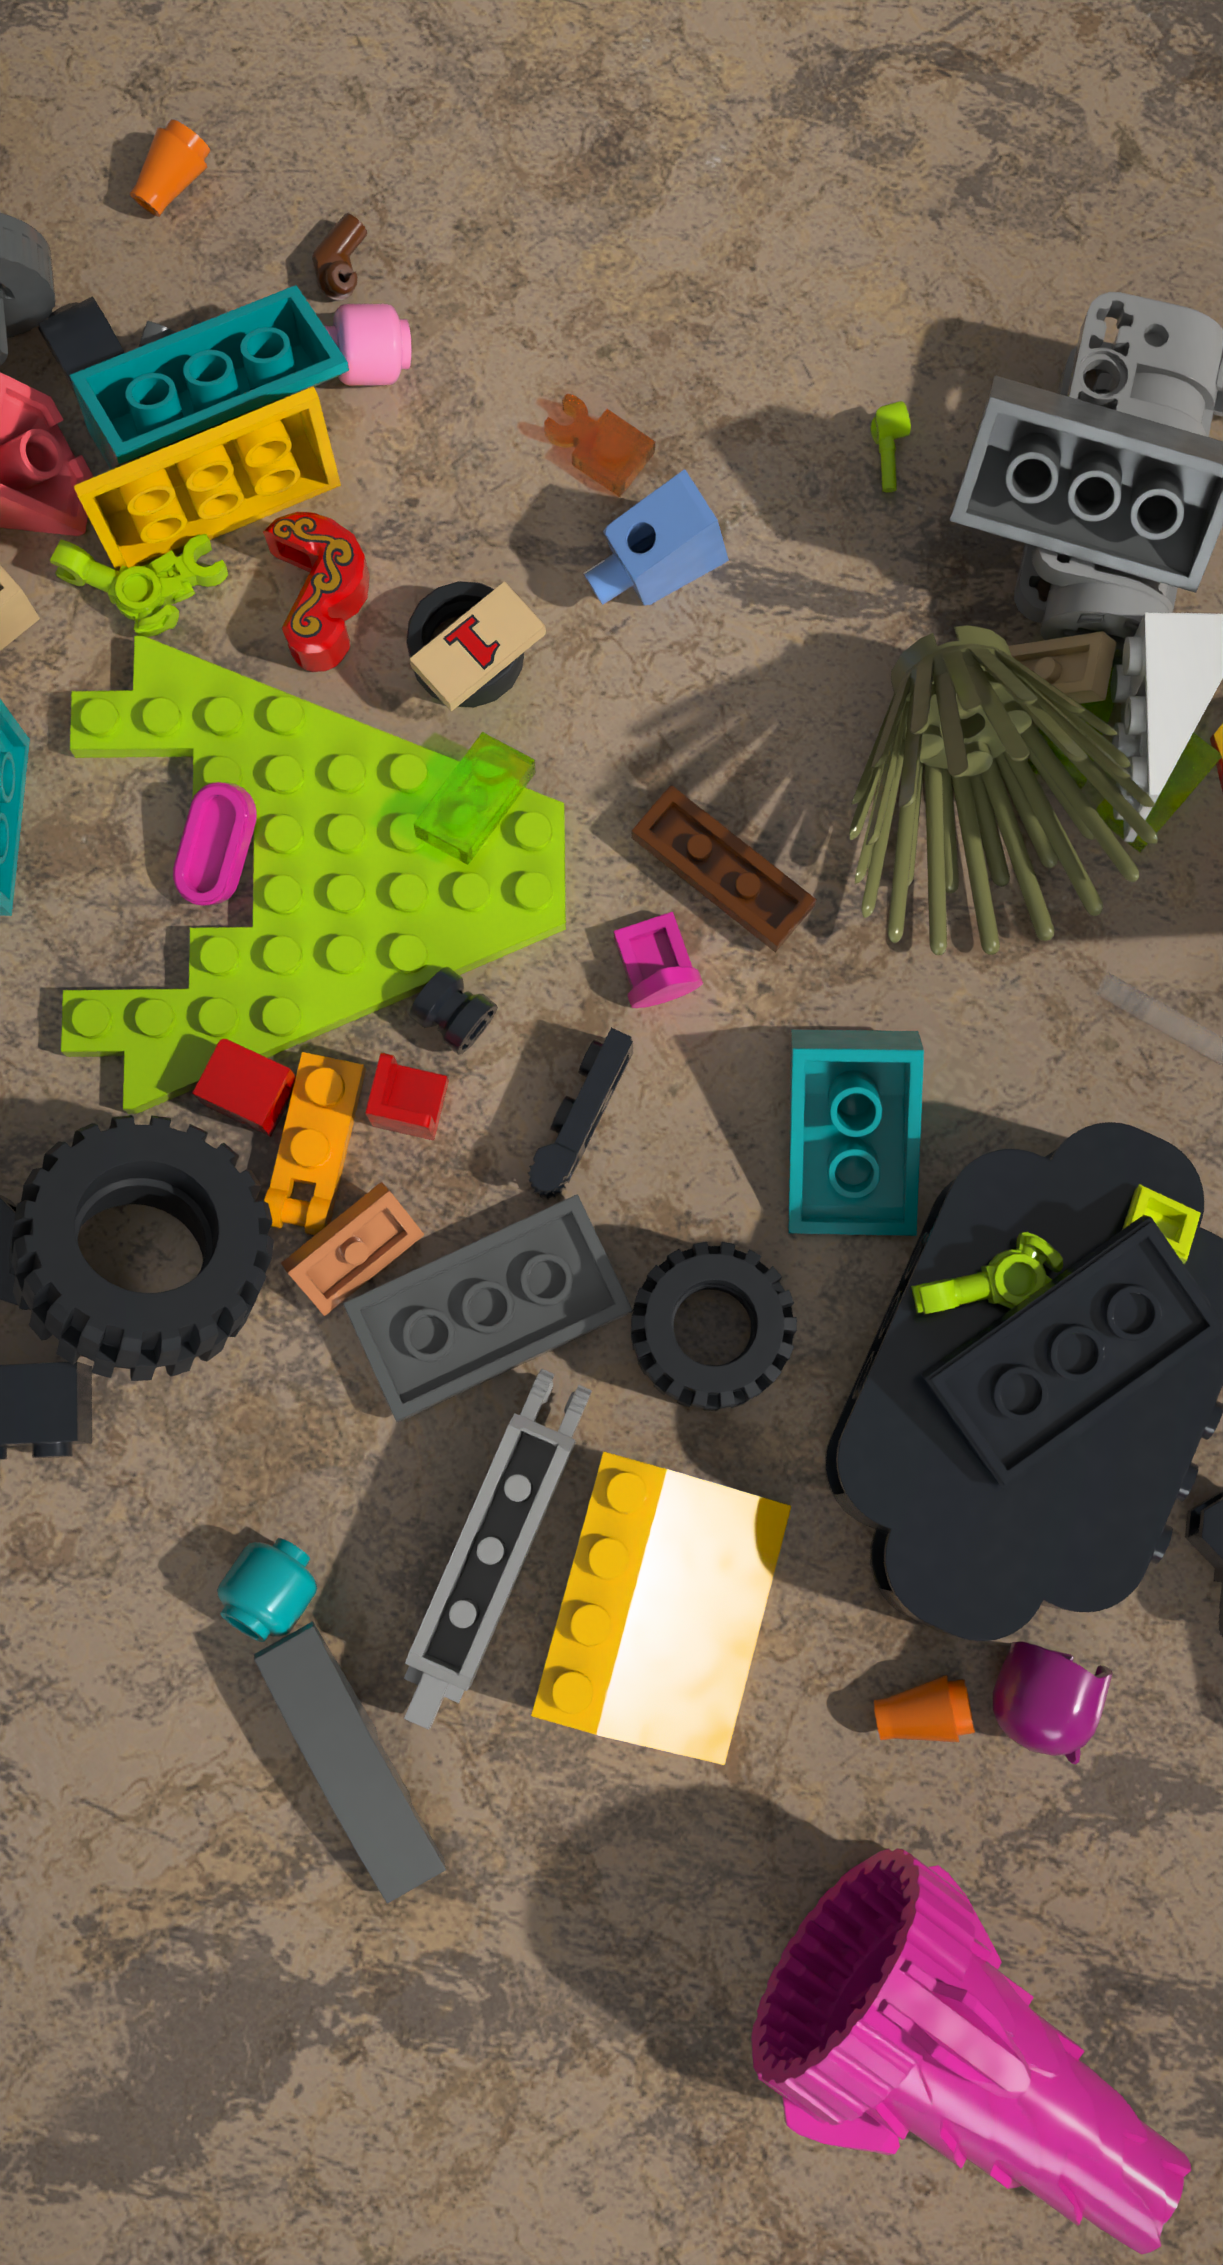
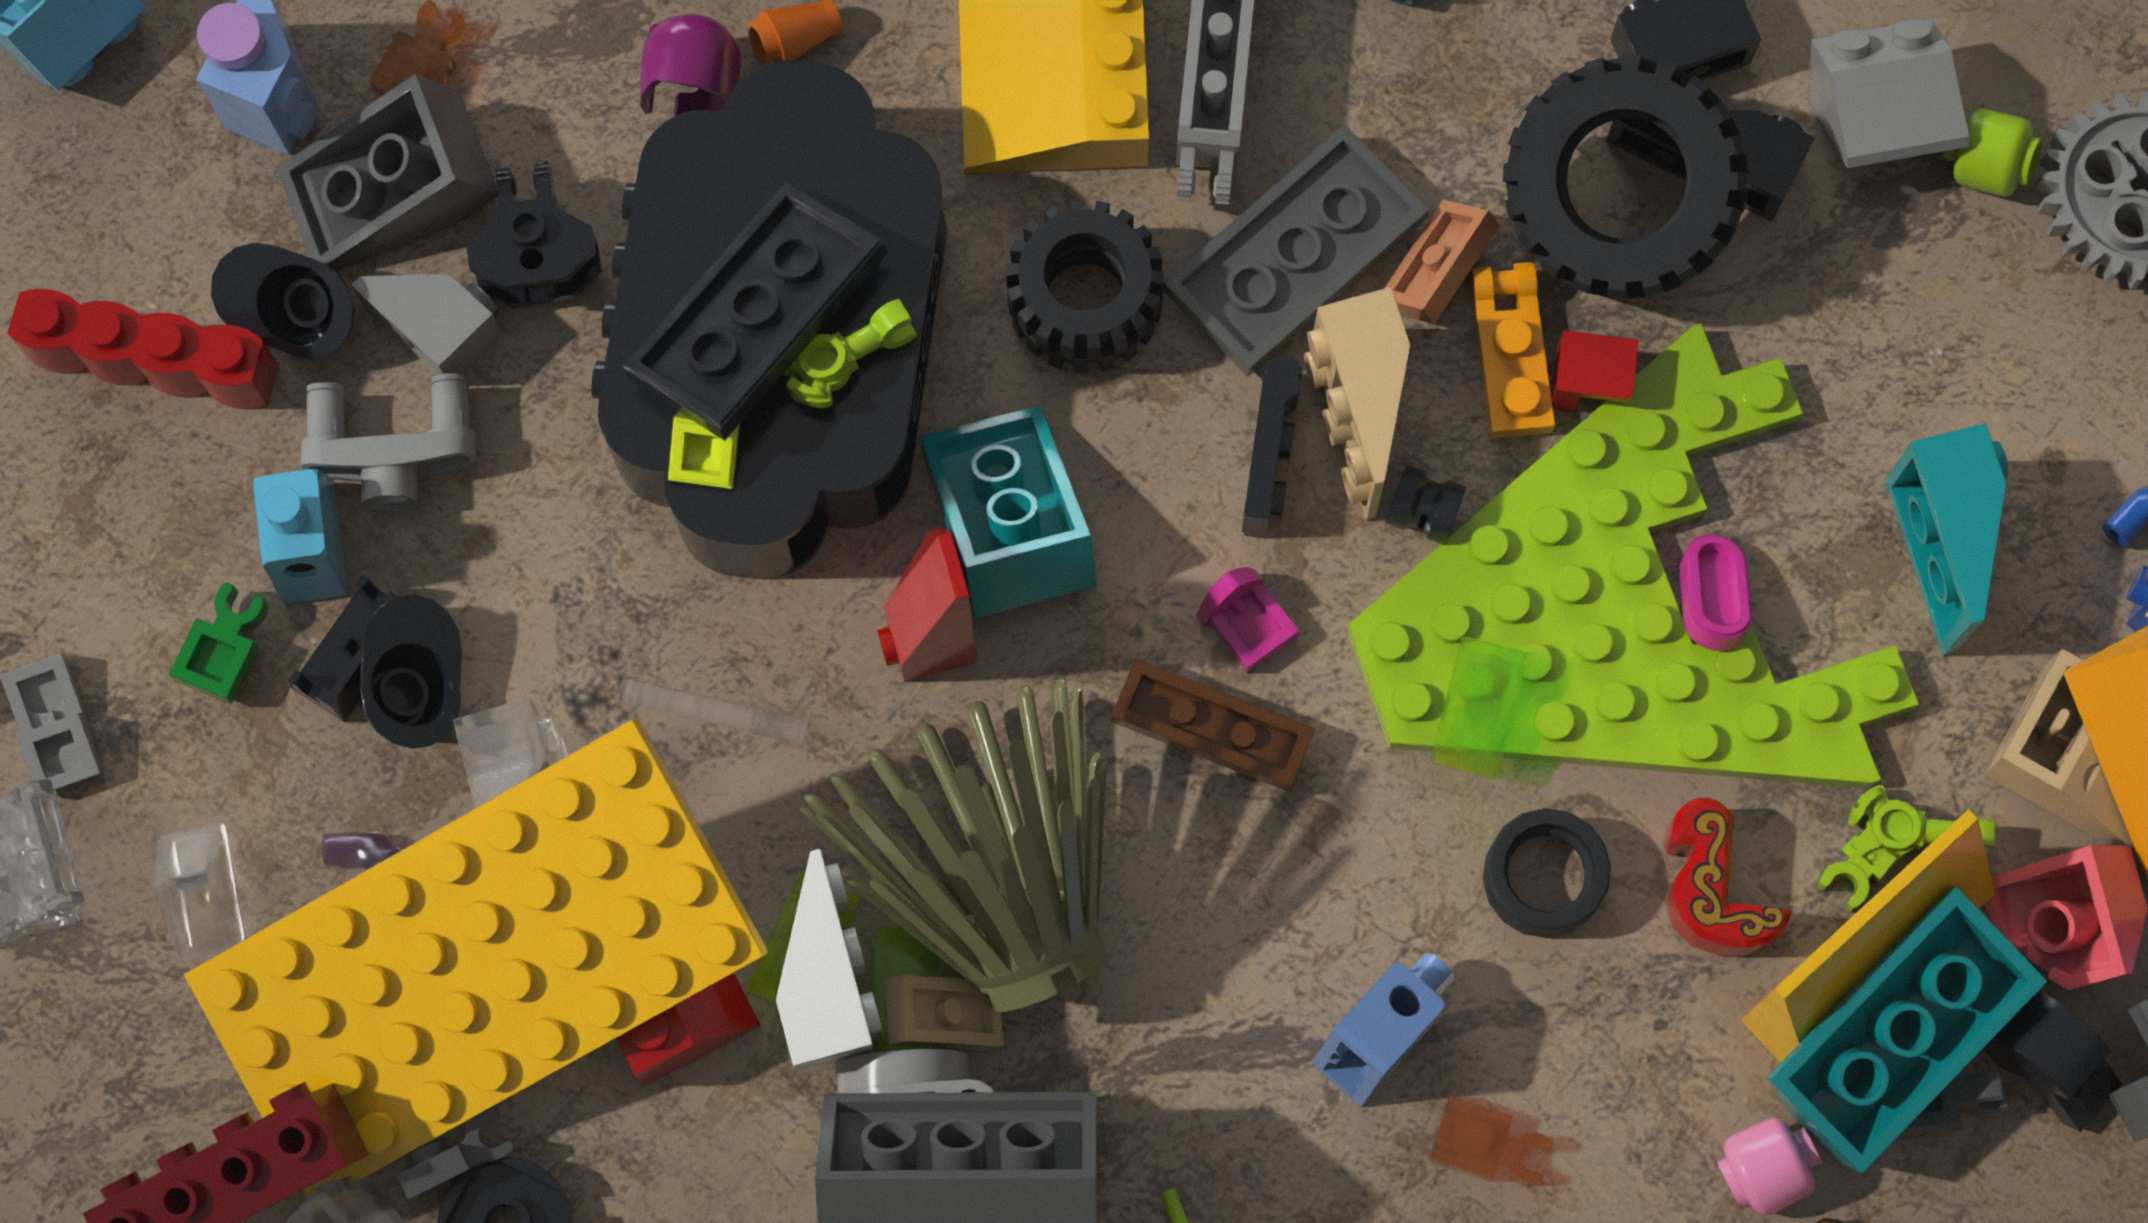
camera: 165 degrees right, 5 degrees down
(406, 1099) = (1439, 408): red panel -> none
(467, 1132) = (1361, 363): none -> tan slope
(477, 646) = (1530, 852): tan tile -> none
(961, 1032) = (930, 613): none -> red wedge

